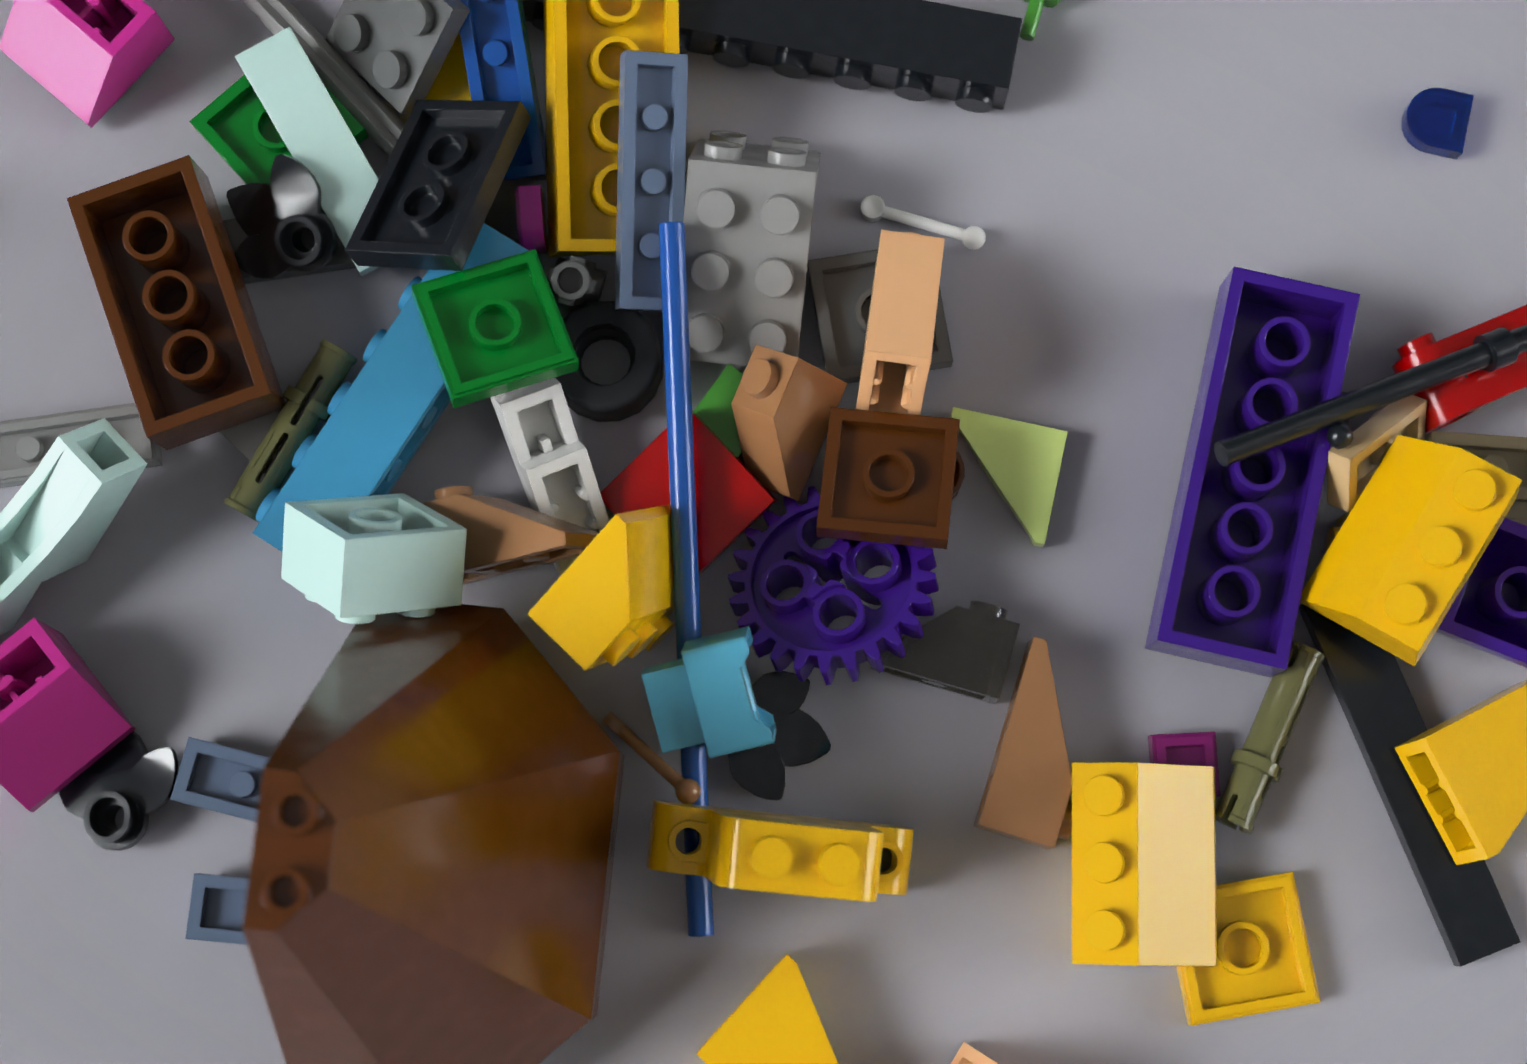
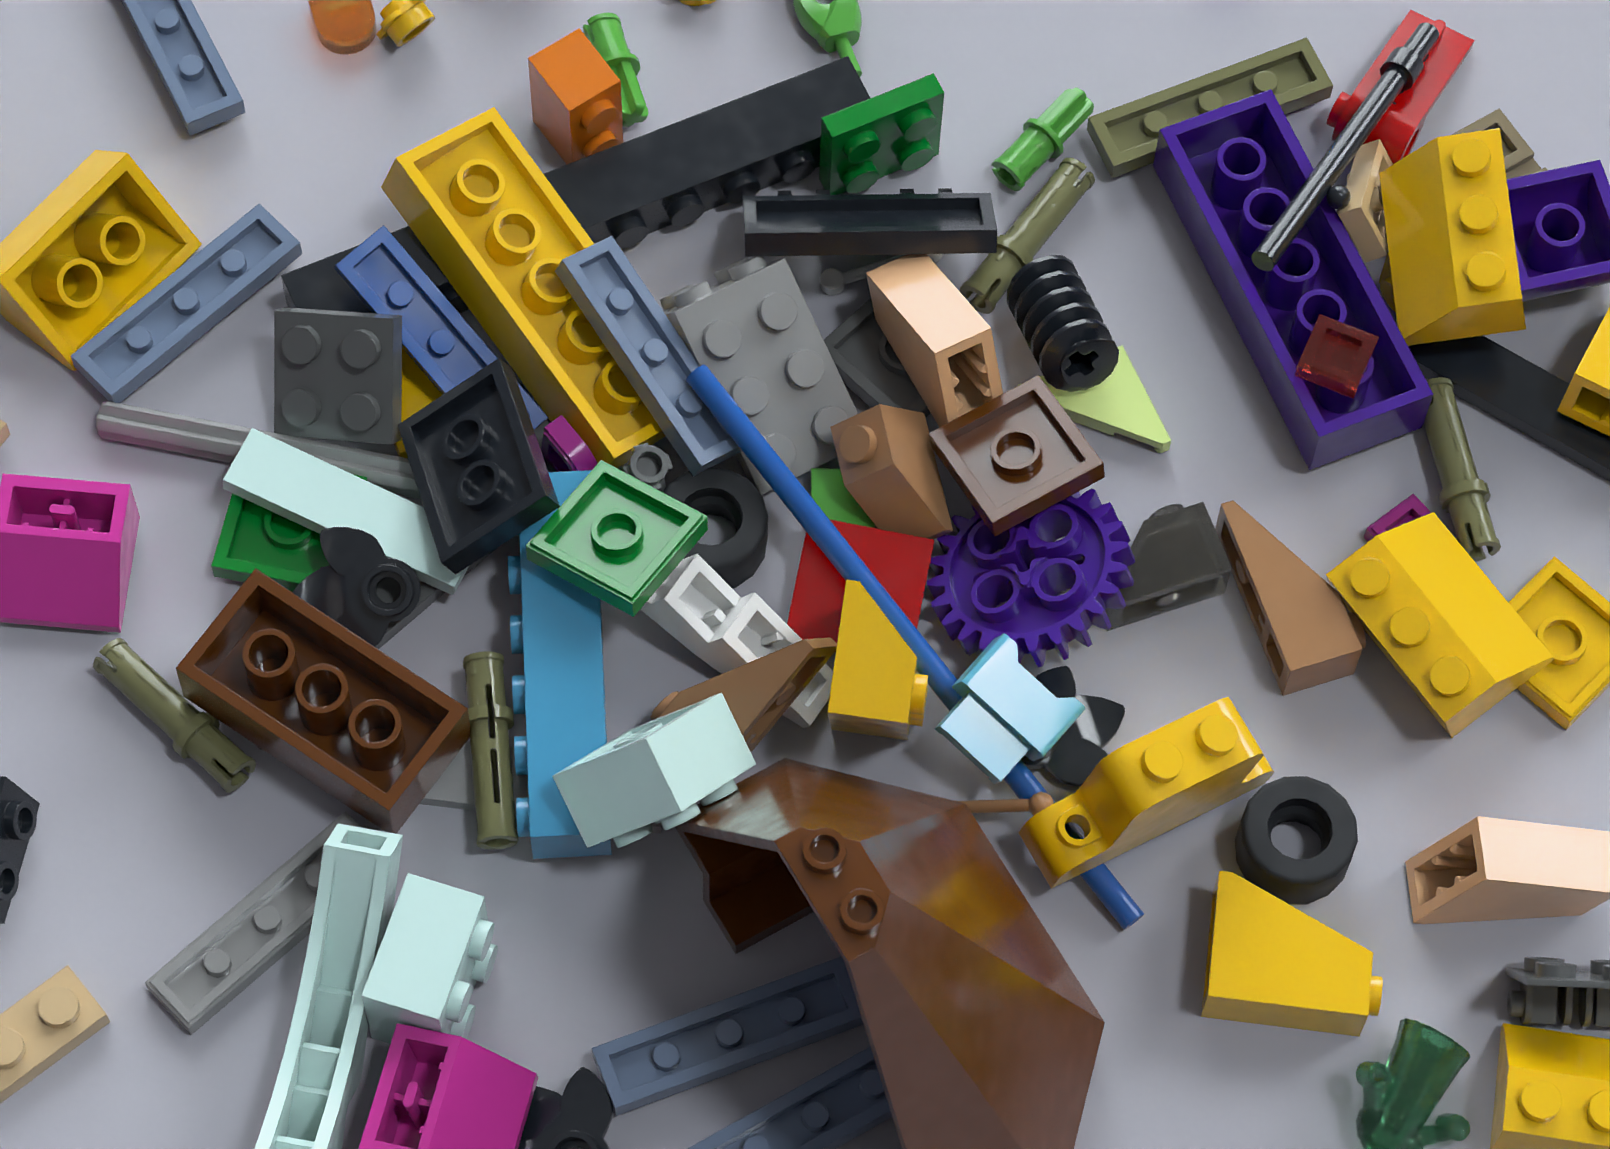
camera: 40 degrees left, 15 degrees down
(70, 177) = (192, 731): none -> olive pin
(99, 585) = (430, 961): none -> light aqua brick
(920, 184) = (869, 224): none -> black hinge
(920, 974) = (1308, 803): none -> black tyre
(996, 111) = (881, 136): none -> green plate
(1023, 381) = (1061, 324): none -> black piece
(1041, 285) = (1027, 234): none -> olive pin
(1143, 199) = (1042, 138): none -> bright green axle
(1226, 579) = (1336, 356): none -> clear red tile
(1388, 282) = (1129, 133): none -> olive plate

